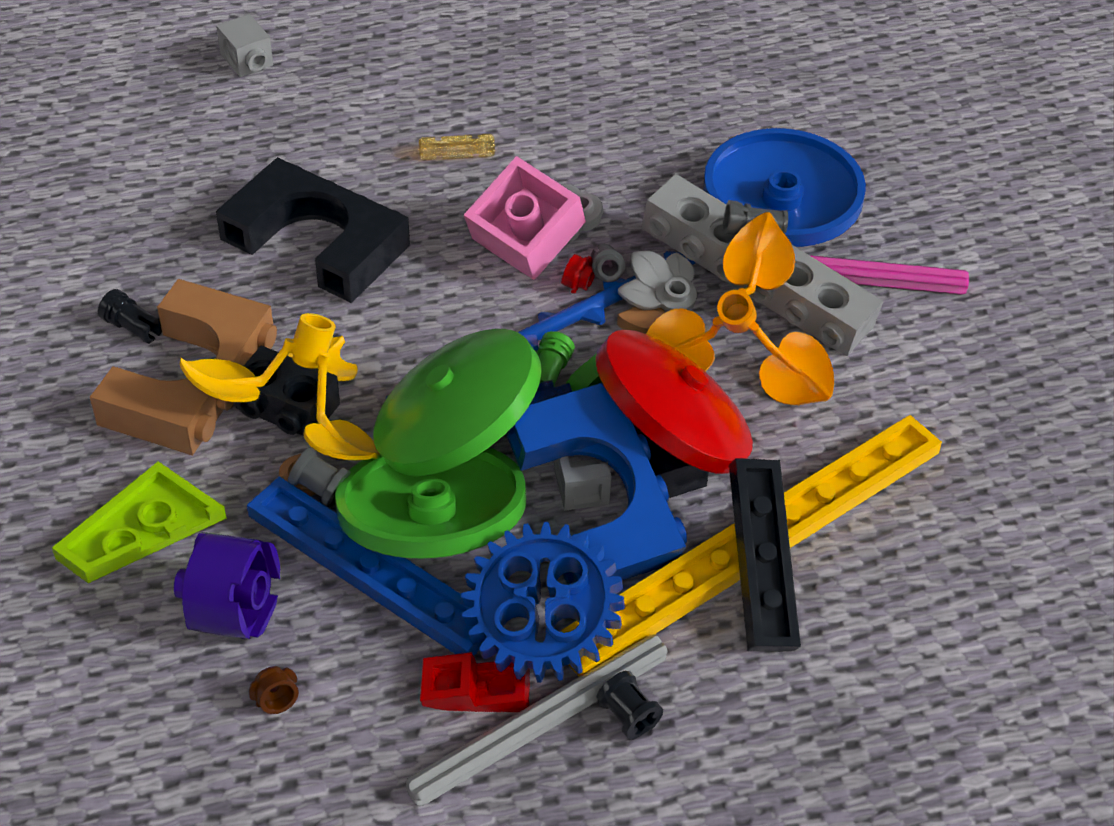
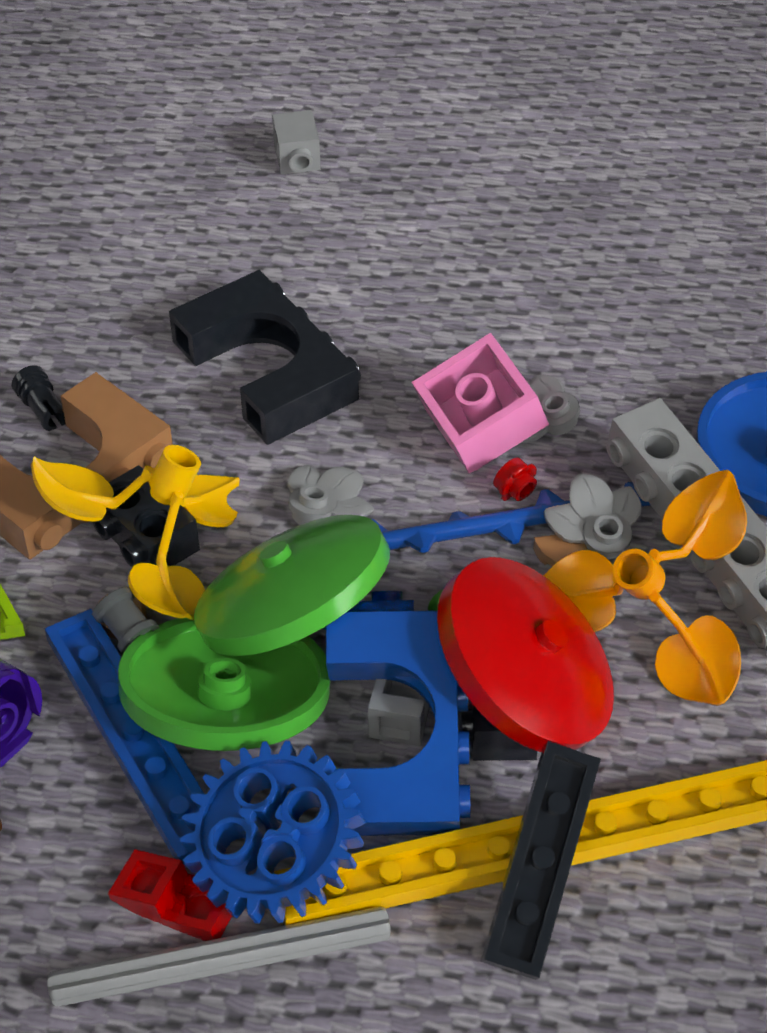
camera: 25 degrees right, 0 degrees up
(425, 327) = (327, 492): none -> light grey plate
(456, 147) = (460, 305): clear yellow axle -> none
(554, 353) = (438, 564): bright green pin -> none
(605, 272) = (548, 477): dark grey pin -> none
(629, 704) = (317, 976): black bush -> none
(738, 215) = (704, 463): dark grey pin -> none

